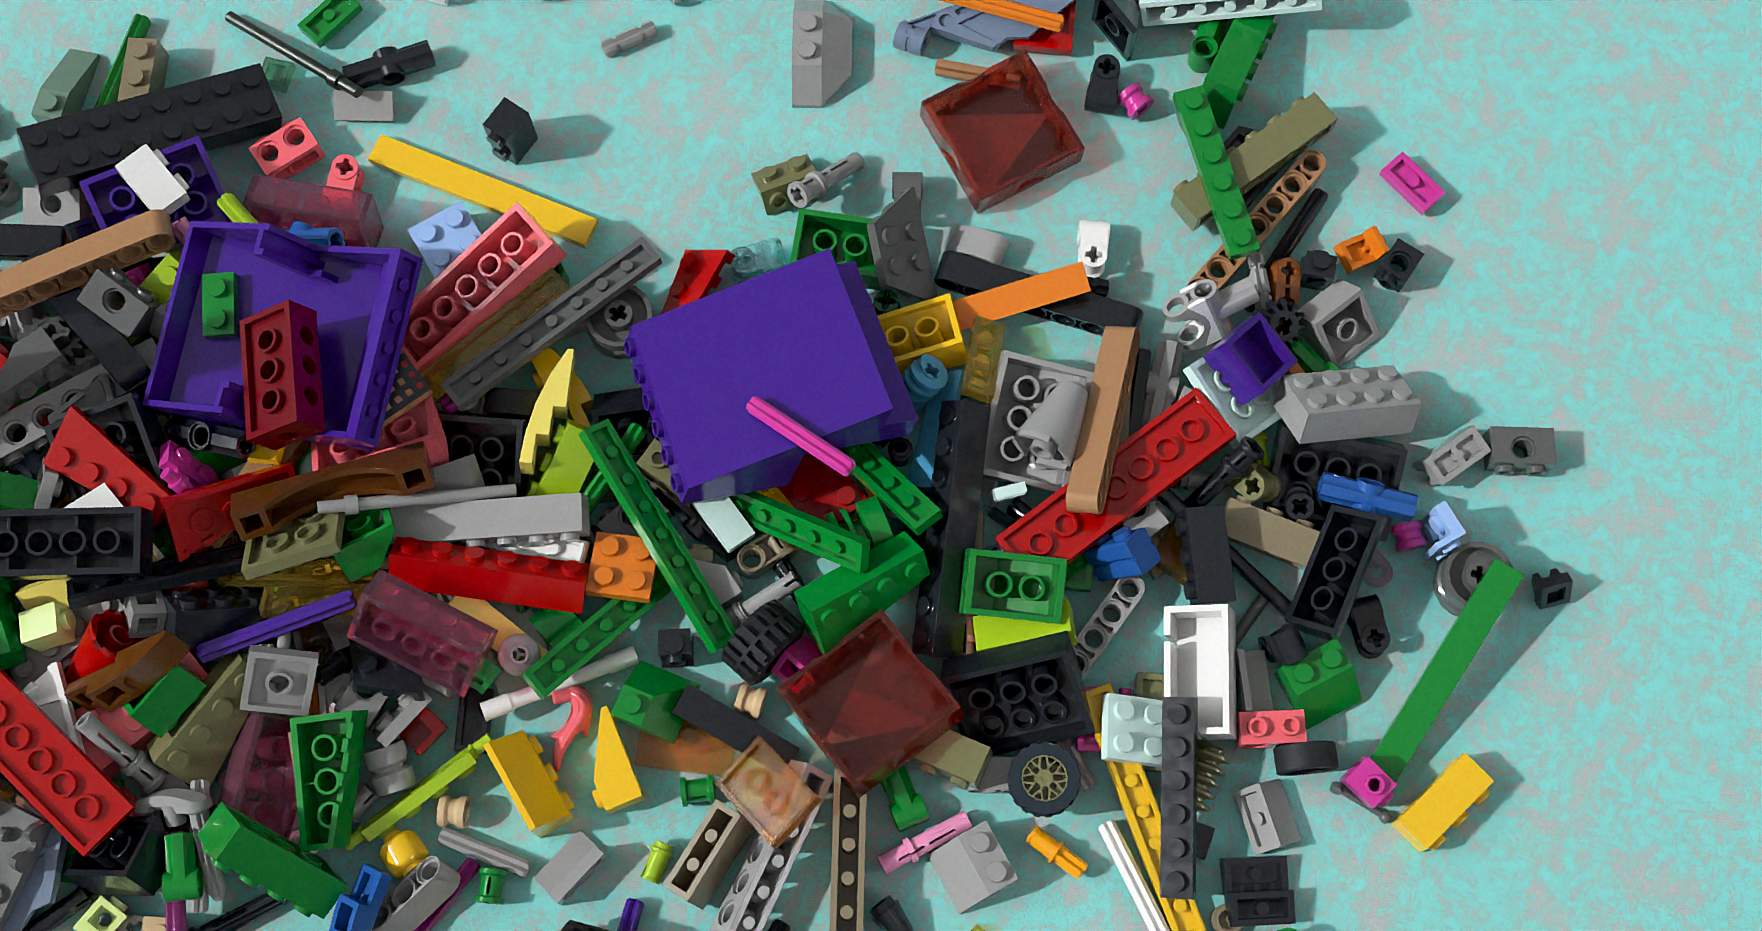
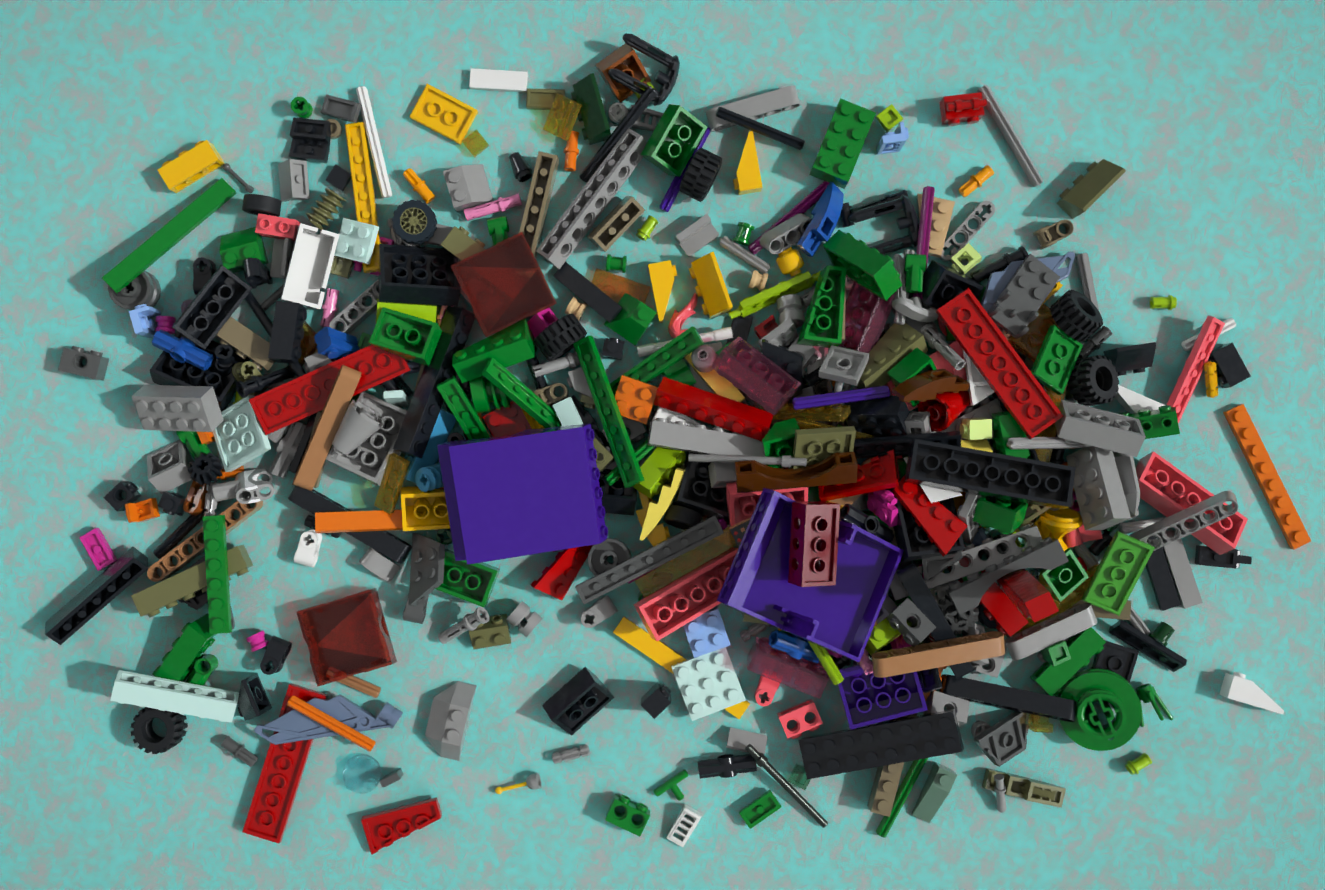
camera: 175 degrees left, 15 degrees up
(152, 182) = (881, 700): white brick -> none
(220, 305) = (848, 605): green plate -> none
(435, 171) = (708, 683): none -> light aqua plate
(469, 27) = (672, 784): none -> green piece
(622, 236) = (601, 610): none -> light grey piece
(632, 111) = (577, 701): none -> black slope
(734, 208) = (517, 616): none -> light grey wheel
(757, 259) = (515, 582): clear light blue piece -> none
(768, 792) = (574, 248): clear orange tile -> none
(801, 436) = (507, 441): dark pink axle -> none
(1153, 619) = (329, 307): none -> bright pink pin
(1179, 797) = (339, 196): black plate -> none
(1250, 358) = (227, 447): dark purple piece -> none
(1369, 783) = (229, 184): dark pink brick -> none
(1392, 115) = (96, 595): none -> black brick
(1453, 456) = (124, 368): light grey hinge -> none
(1552, 589) = (88, 275): black tile -> none

